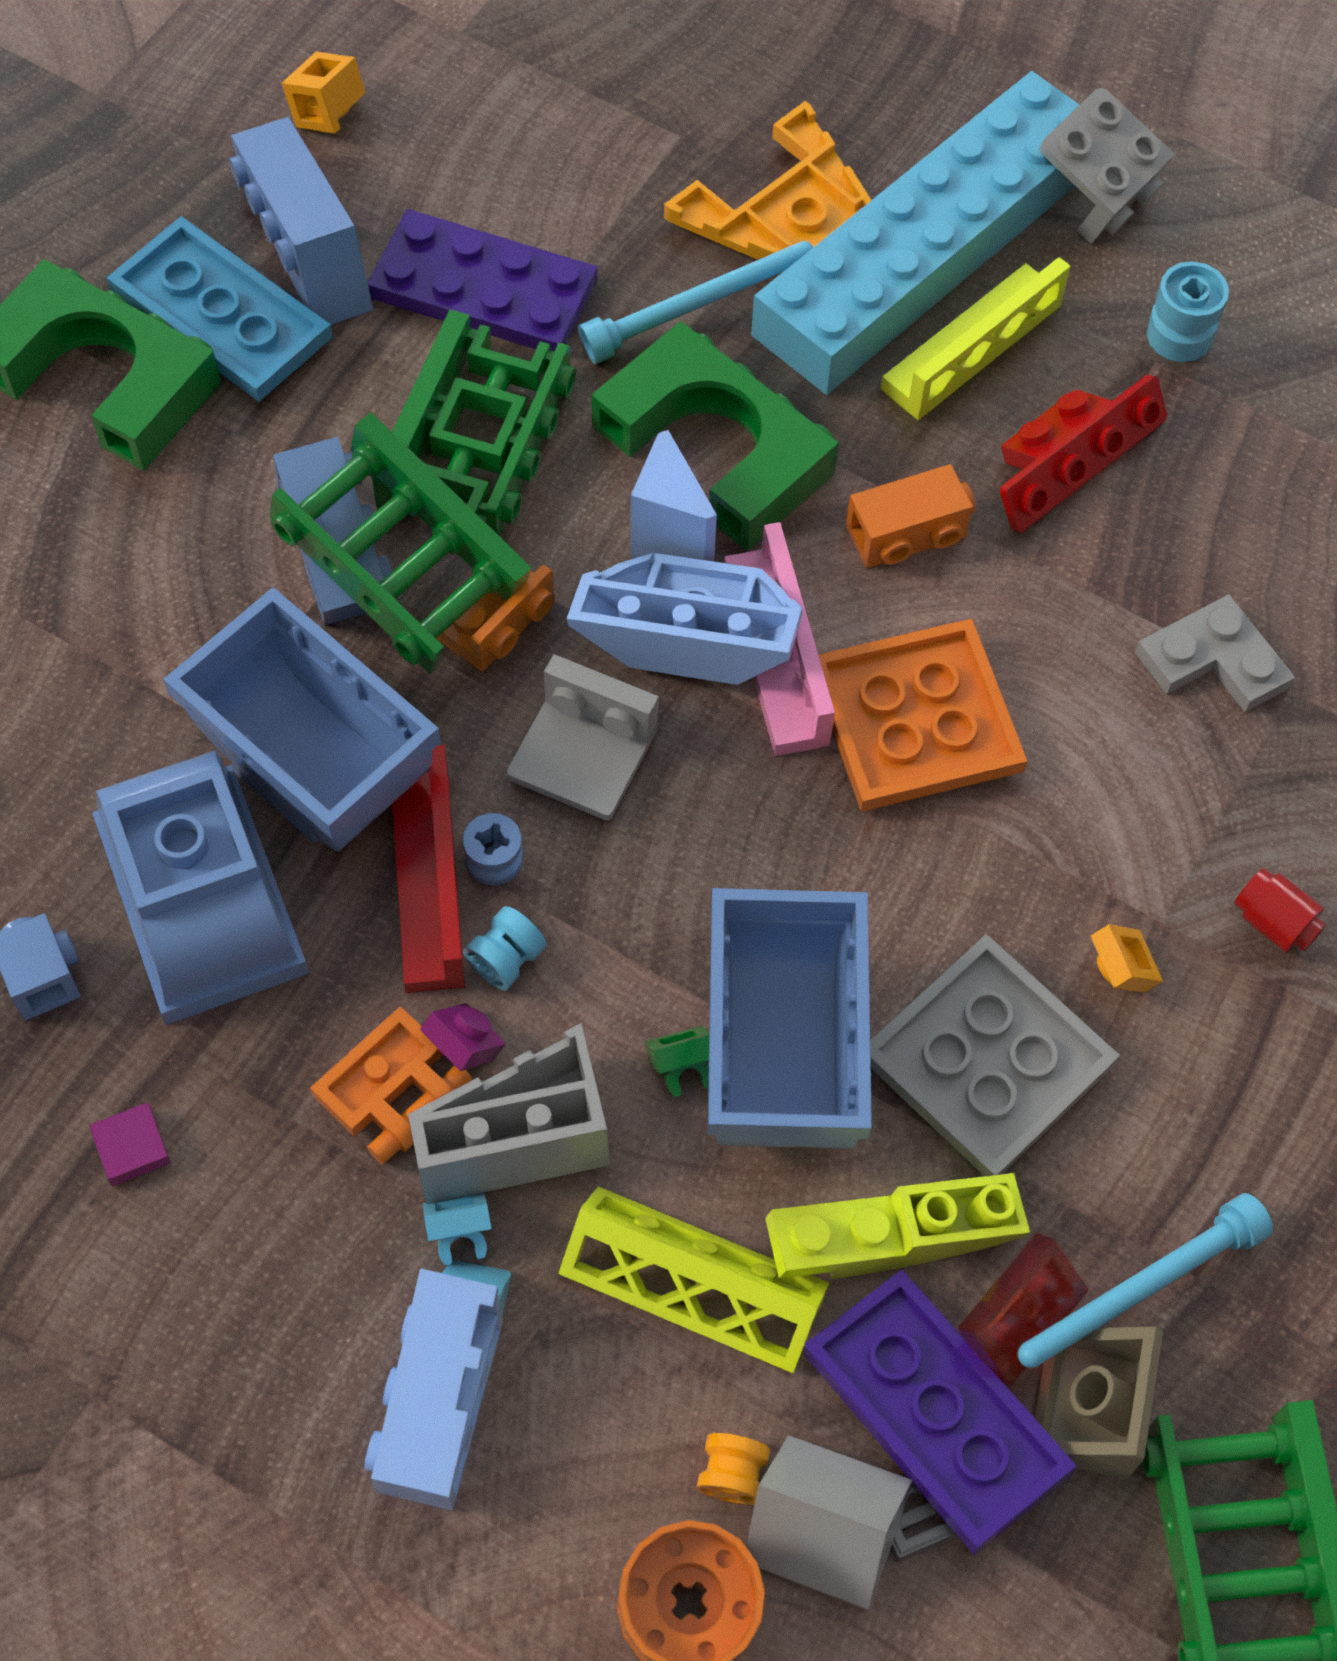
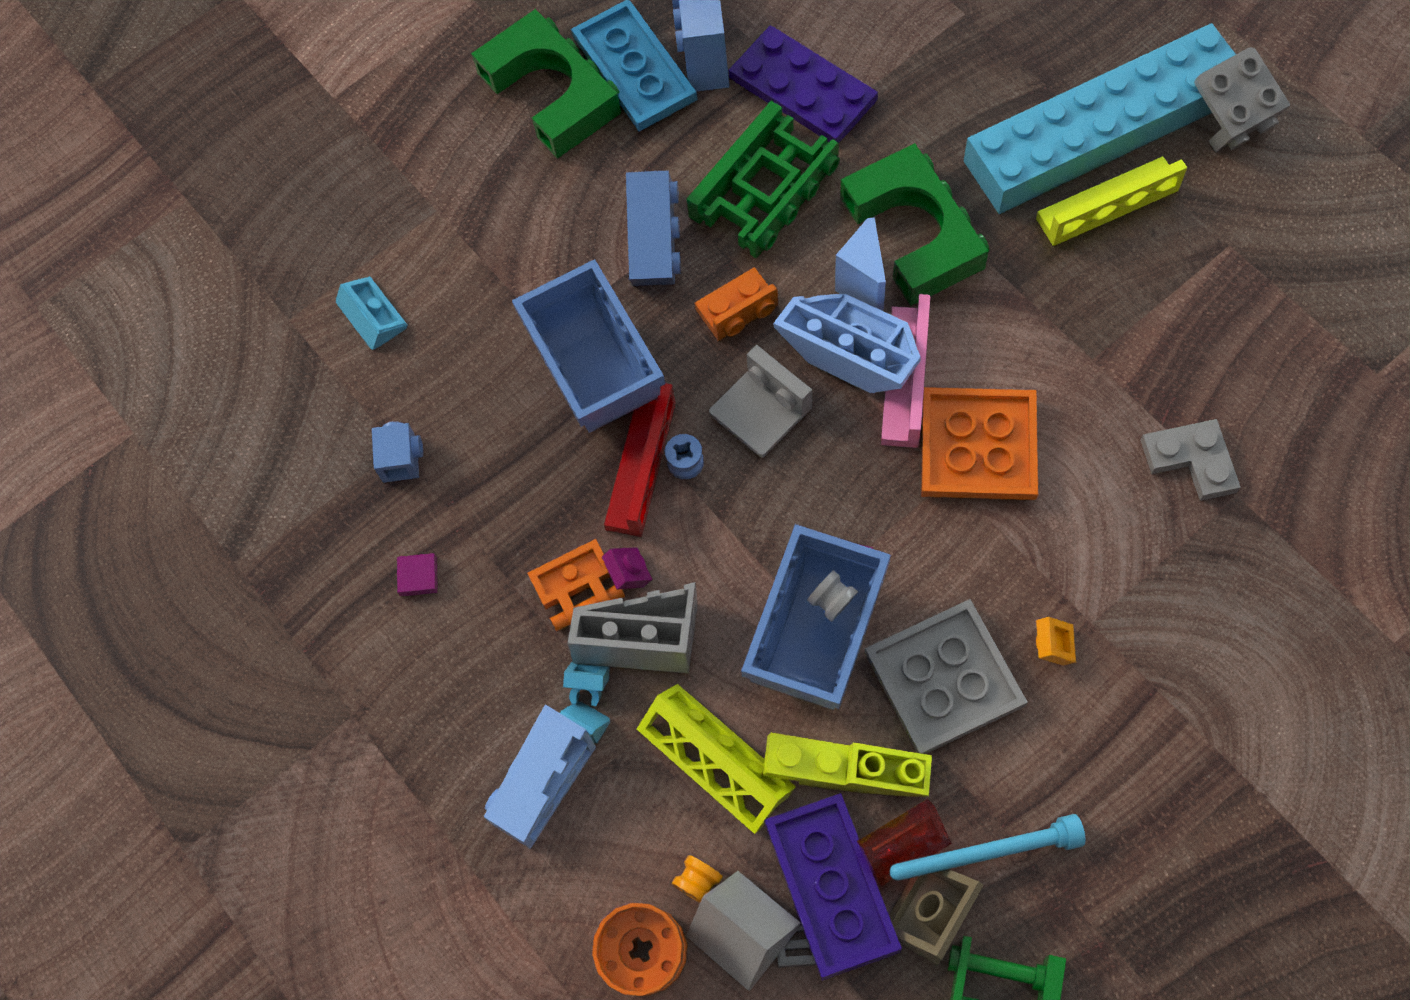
camera: 30 degrees right, 5 degrees up
(197, 886) = (502, 429): medium blue container -> none
(414, 492) = (704, 218): green fence -> none
(505, 948) = (664, 527): medium azure wheel -> none
(605, 336) = (866, 140): medium azure piece -> none
(679, 1052) = (747, 617): green tile -> none
(794, 208) = (1018, 83): light orange wing -> none
(804, 976) = (832, 595): none -> light grey wheel
(910, 516) = (1021, 311): orange brick -> none
(1074, 445) = (1148, 290): red bracket -> none
(1187, 311) = (1260, 217): medium azure wheel -> none
(1281, 911) = (1170, 640): red brick -> none

